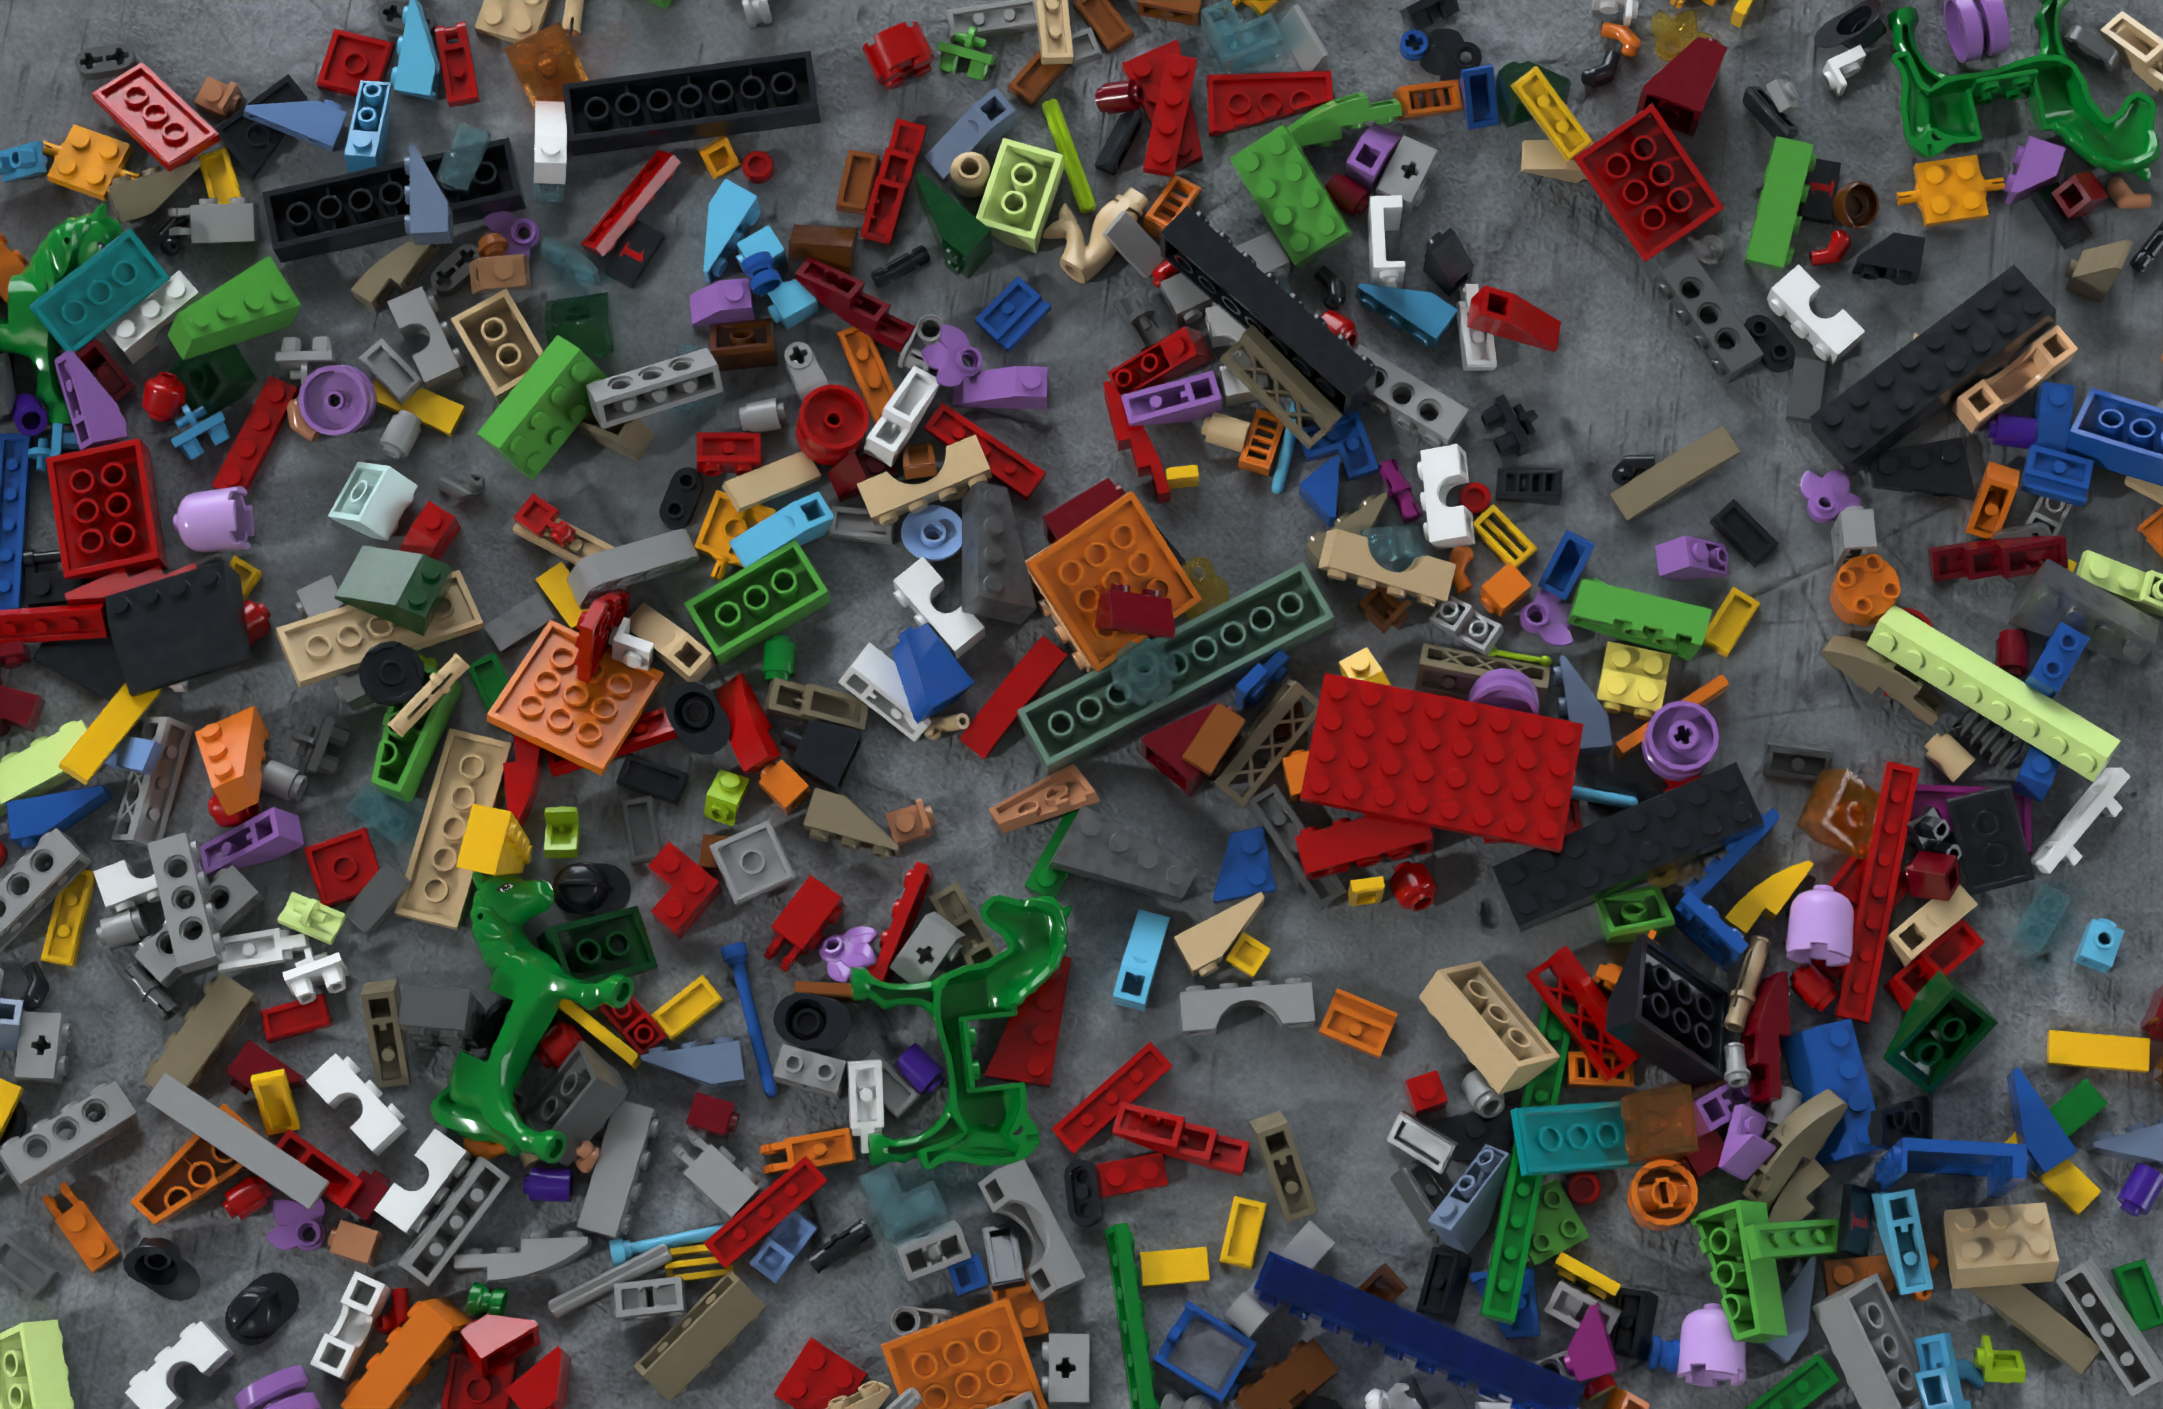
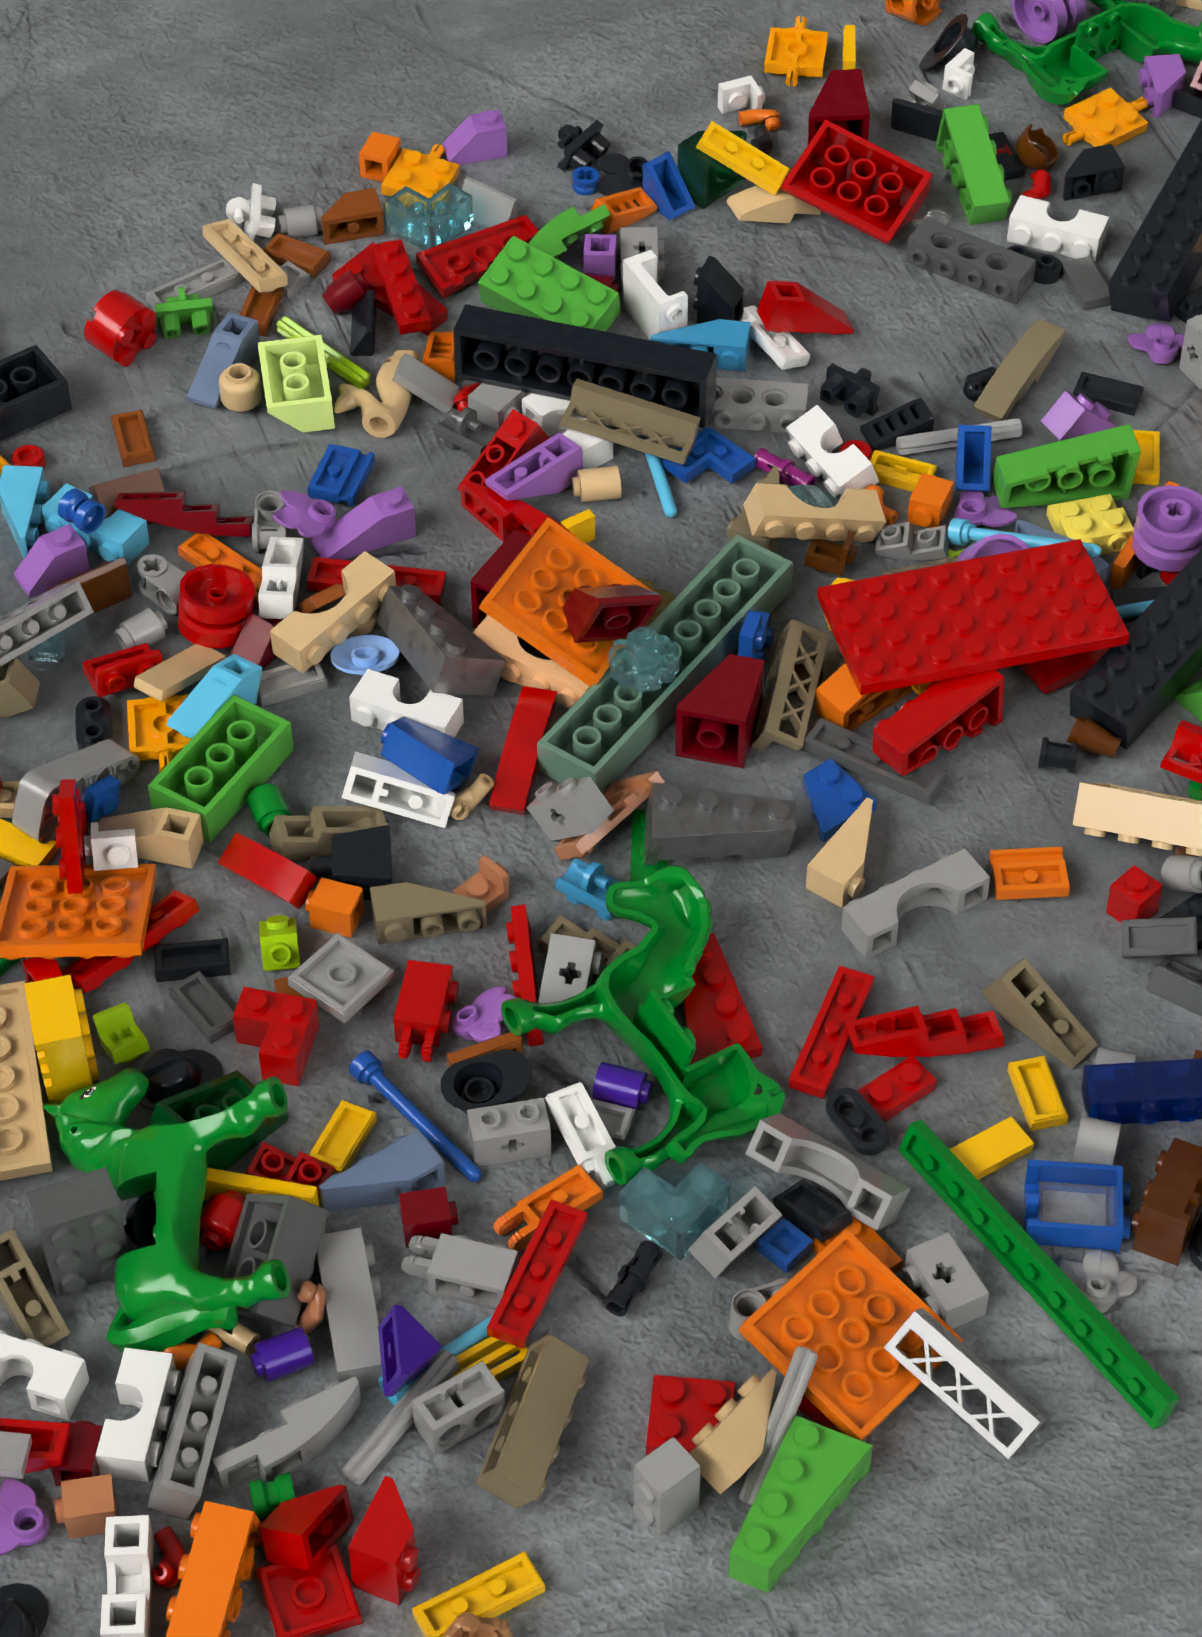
camera: 30 degrees left, 25 degrees down
(629, 1238) = (404, 1349): none -> dark purple slope
(649, 587) = (101, 798): none -> blue plate
(698, 718) = (214, 877): black piece -> none
(784, 1246) = (573, 1304): medium blue slope -> none
(893, 182) = (168, 422): red slope -> none
(900, 266) = (211, 480): black axle -> none
(959, 234) = (245, 423): dark green slope -> none
(994, 868) = (587, 886): none -> dark azure hips
(1012, 787) = (569, 808): none -> light grey brick
(1140, 960) = (787, 909): medium azure slope -> none
(1214, 739) = (747, 678): dark orange tile -> none
(1248, 955) = (886, 861): yellow plate -> none
(1255, 464) = (637, 486): orange slope -> none
(1321, 490) = (715, 493): blue slope -> none
(1366, 891) = (965, 757): yellow tile -> none
(1413, 886) = (1005, 745): red head -> none
(1453, 916) = (1058, 755): none -> black bush
(1492, 912) = (1093, 738): none -> reddish brown cone
(1514, 637) = (964, 532): none -> medium azure piece
(1578, 522) = (948, 437): none -> light grey axle
(1676, 32) = (799, 102): clear yellow plate -> none

